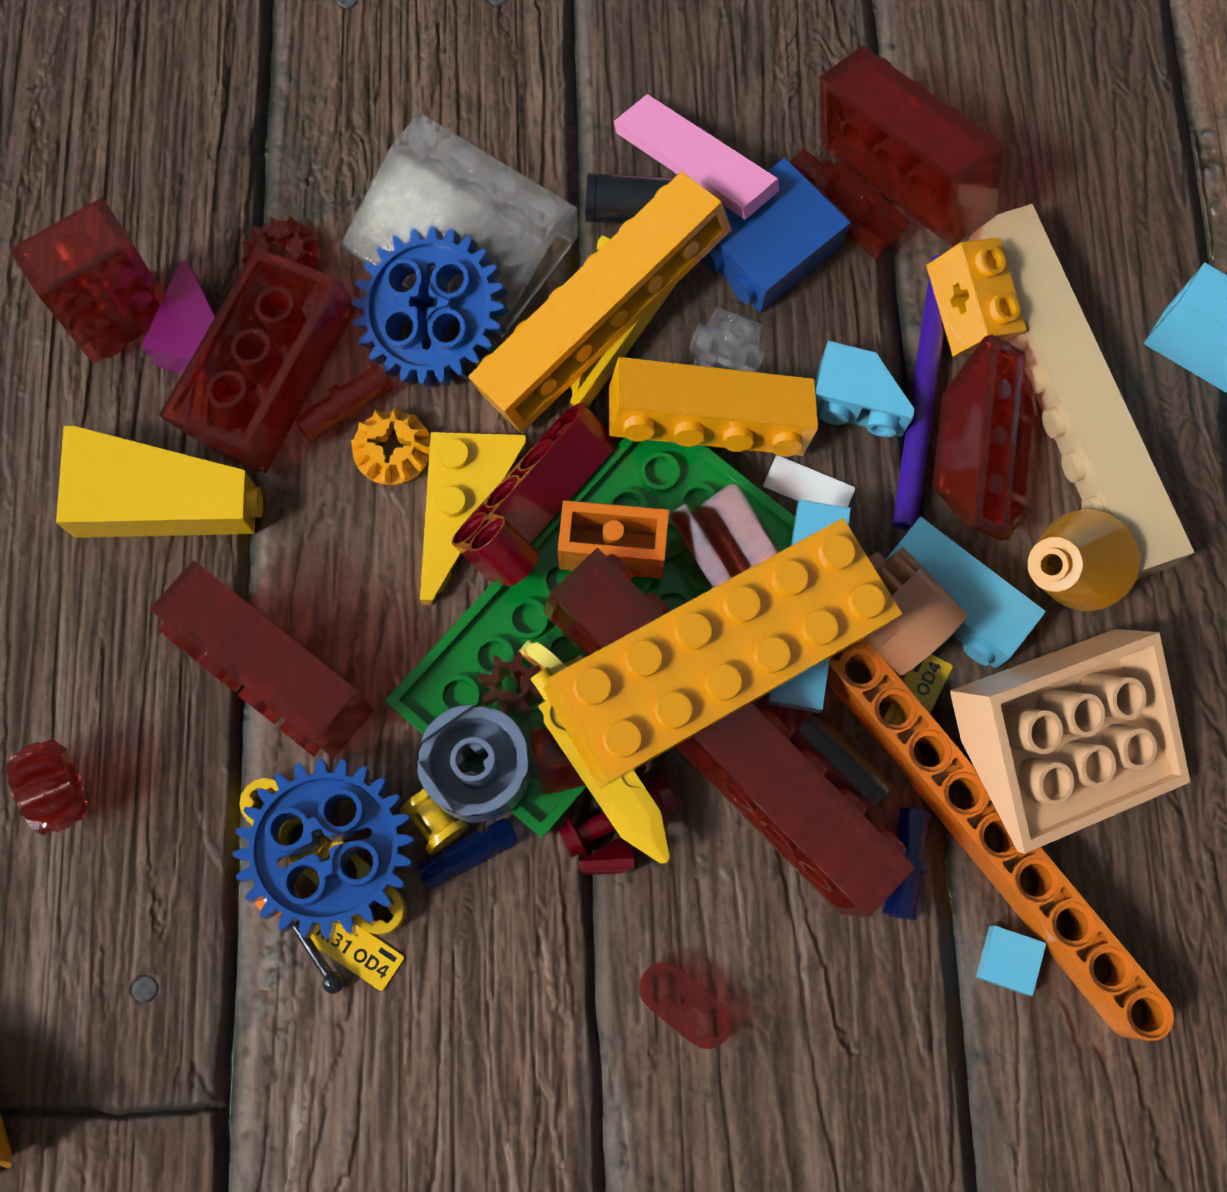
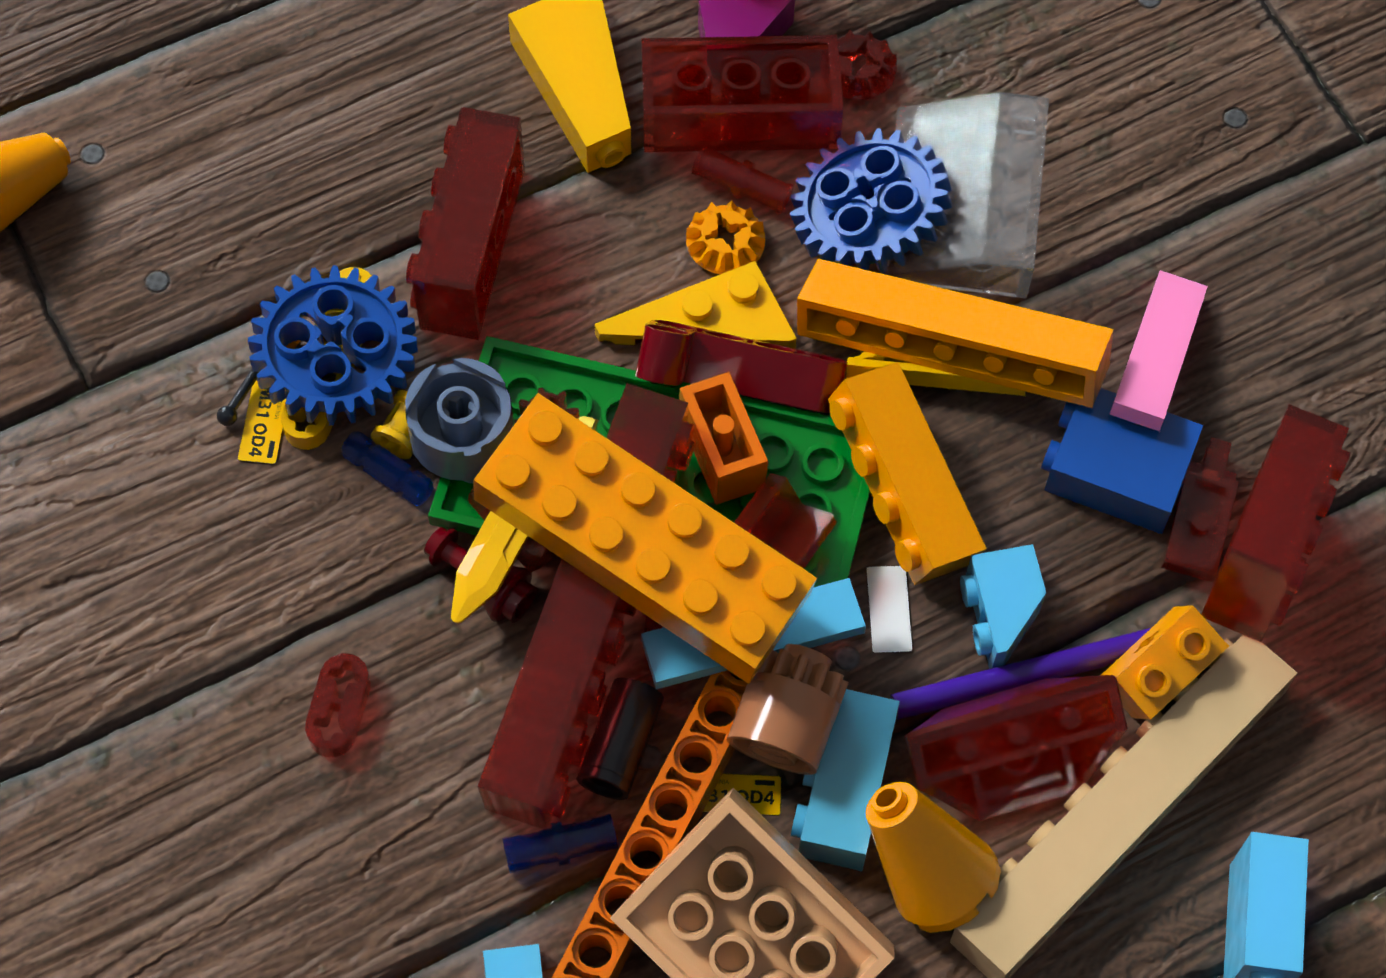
camera: 65 degrees right, 10 degrees down
(46, 787) = (284, 120): clear red gear -> none
(611, 859) = (434, 580): dark red slope -> none
(619, 197) = (1075, 297): black pin -> none
(728, 341) = (979, 462): clear brick -> none

